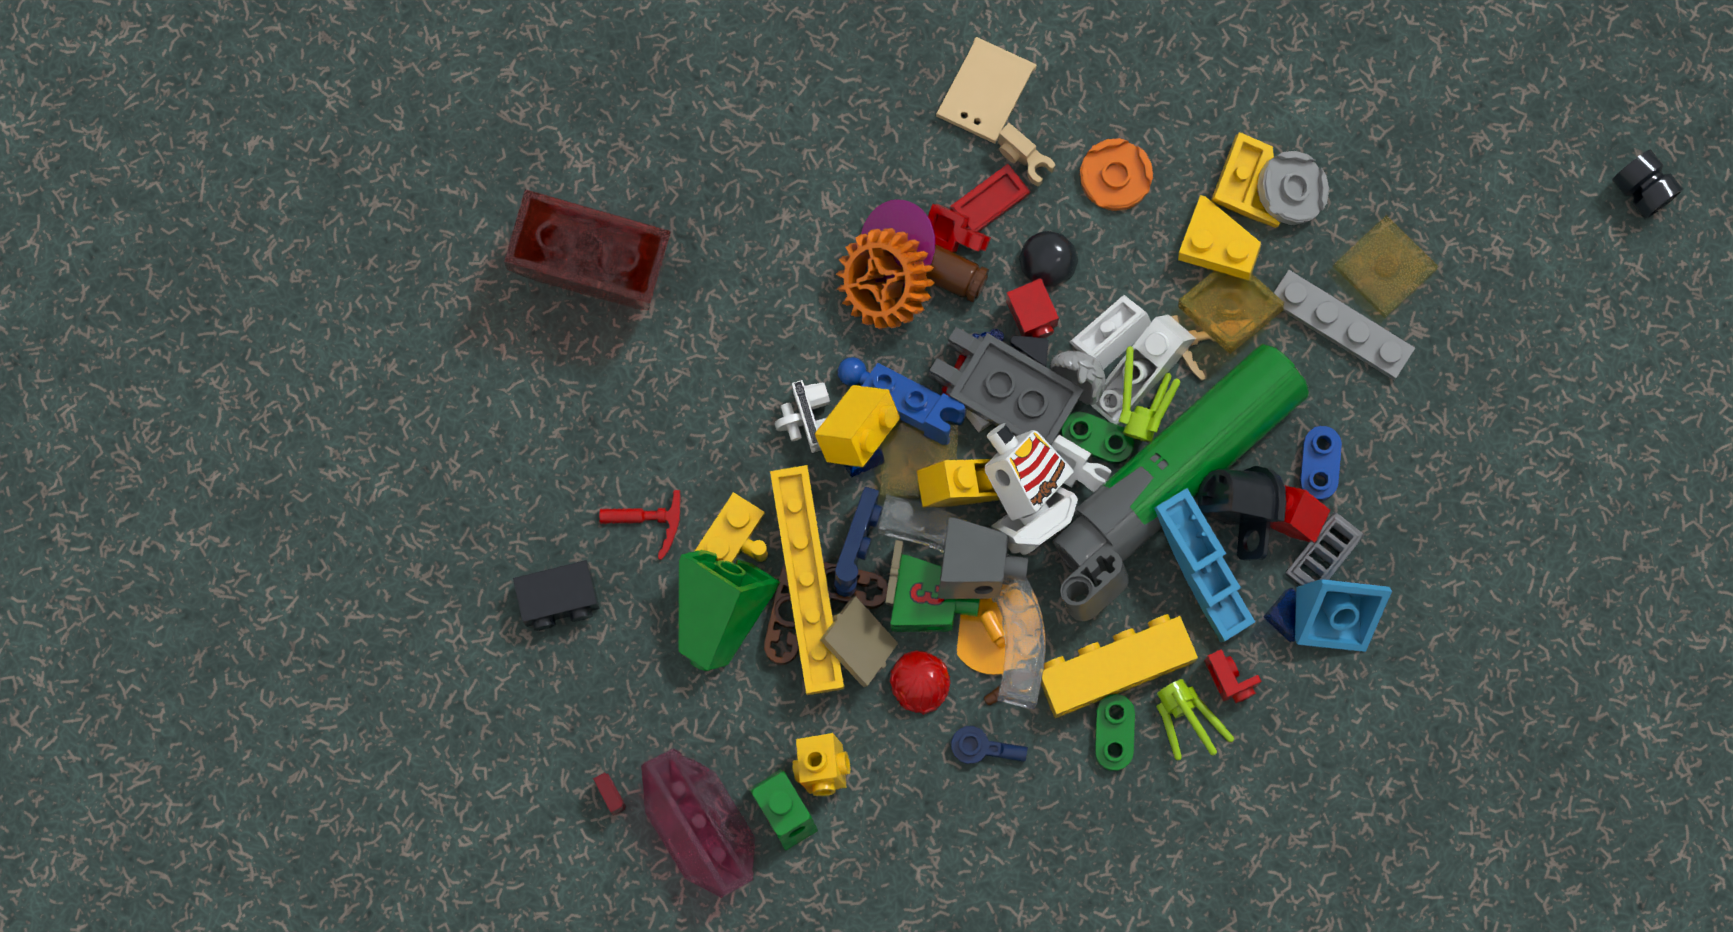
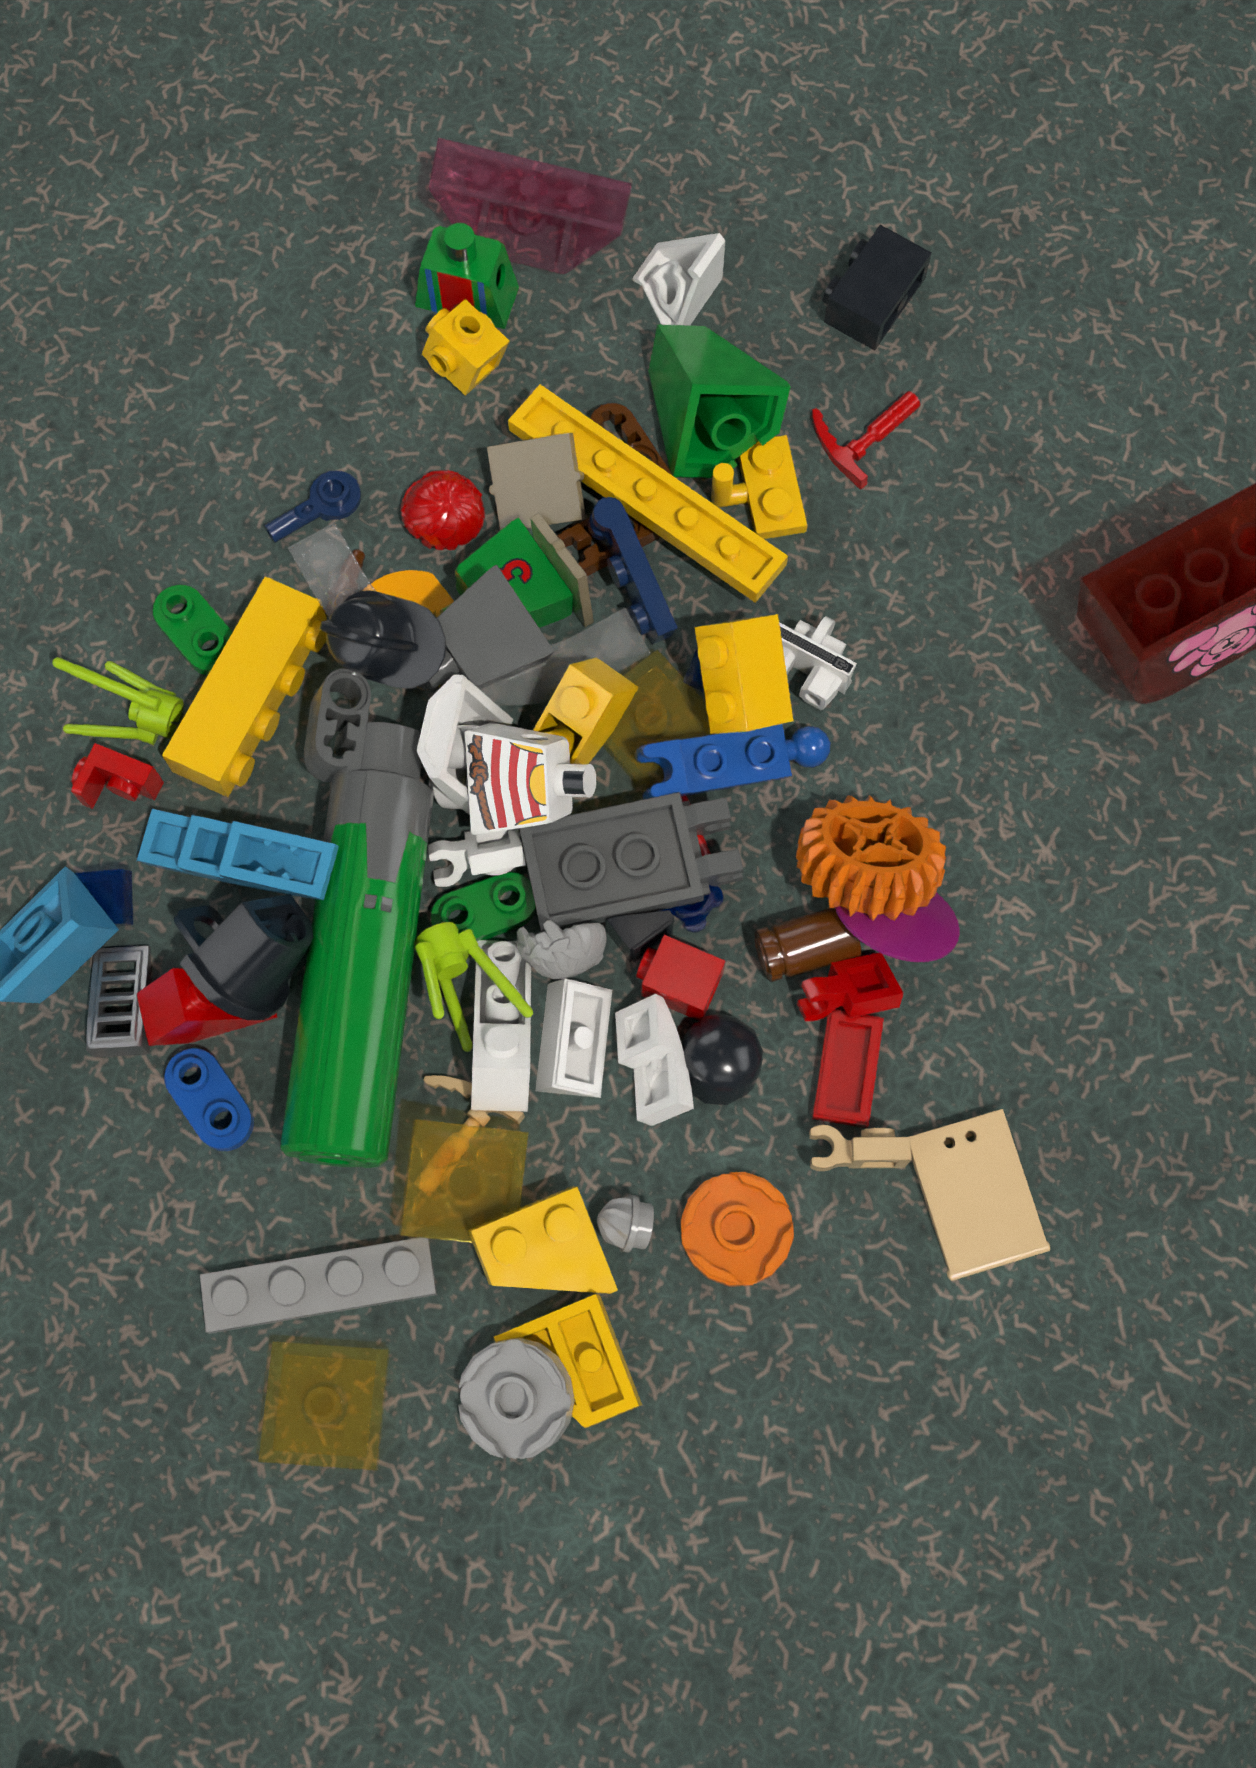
camera: 135 degrees right, 5 degrees down
(610, 793) = (642, 165): dark red tile -> none
(660, 702) = (682, 276): none -> white slope
(1032, 601) = (386, 639): none -> black piece
(1079, 286) = (654, 1050): none -> white slope
(1167, 219) = (626, 1223): none -> light grey plate

